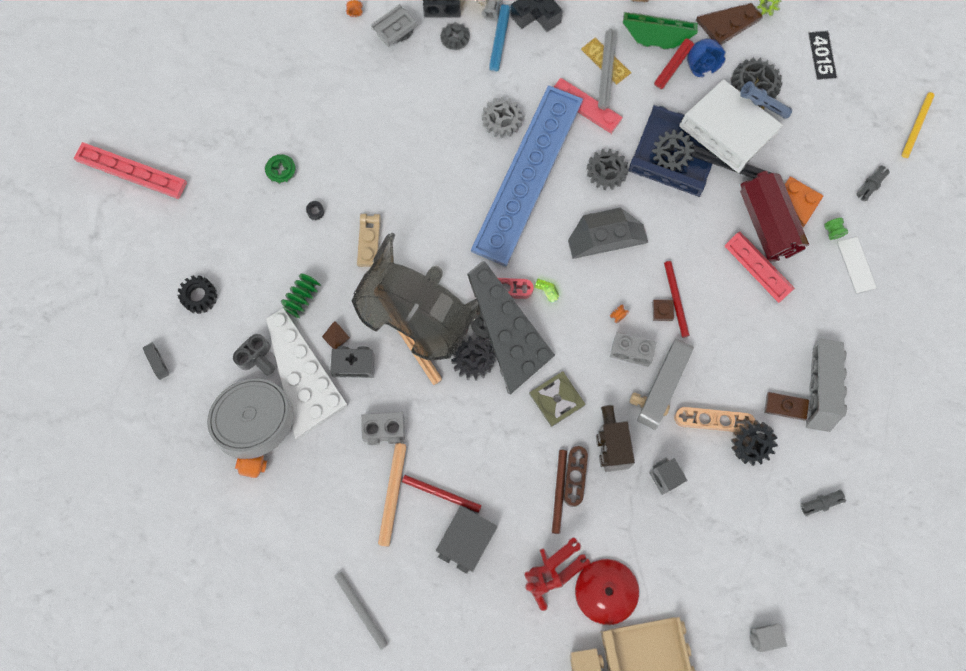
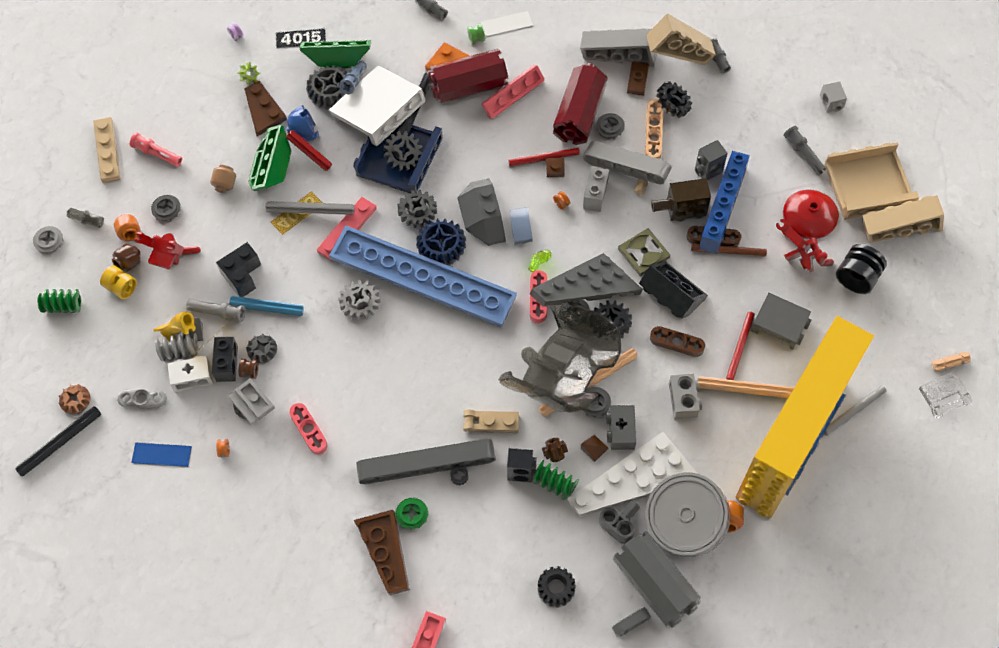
camera: 90 degrees left, 10 degrees down
(187, 384) = (657, 579): none -> dark grey brick
(257, 144) = (384, 546): none -> reddish brown wing
(313, 260) = (520, 465): none -> black brick
(317, 532) = (803, 418): none -> yellow panel
(329, 180) = (425, 461): none -> dark grey beam
(332, 296) = (555, 449): none -> reddish brown gear
(356, 80) = (308, 420): none -> coral beam
(385, 348) = (604, 402): none -> dark grey gear
(432, 24) = (248, 368): none -> reddish brown wheel
(448, 410) = (675, 334): none -> reddish brown beam
(509, 425) = (672, 289): none -> black slope
(525, 637) = (861, 268): none -> black wheel
(581, 188) = (451, 237): none -> dark blue gear
(587, 270) = (521, 226): none -> sand blue slope
(616, 489) = (724, 202): none -> blue brick
(699, 588) = (800, 143): none -> dark grey pin
(722, 363) = (615, 121): none -> dark grey gear
(741, 335) = (580, 104): none -> dark red brick
(801, 82) = (335, 52): none -> green wedge
(828, 450) = (680, 41): none -> tan wedge

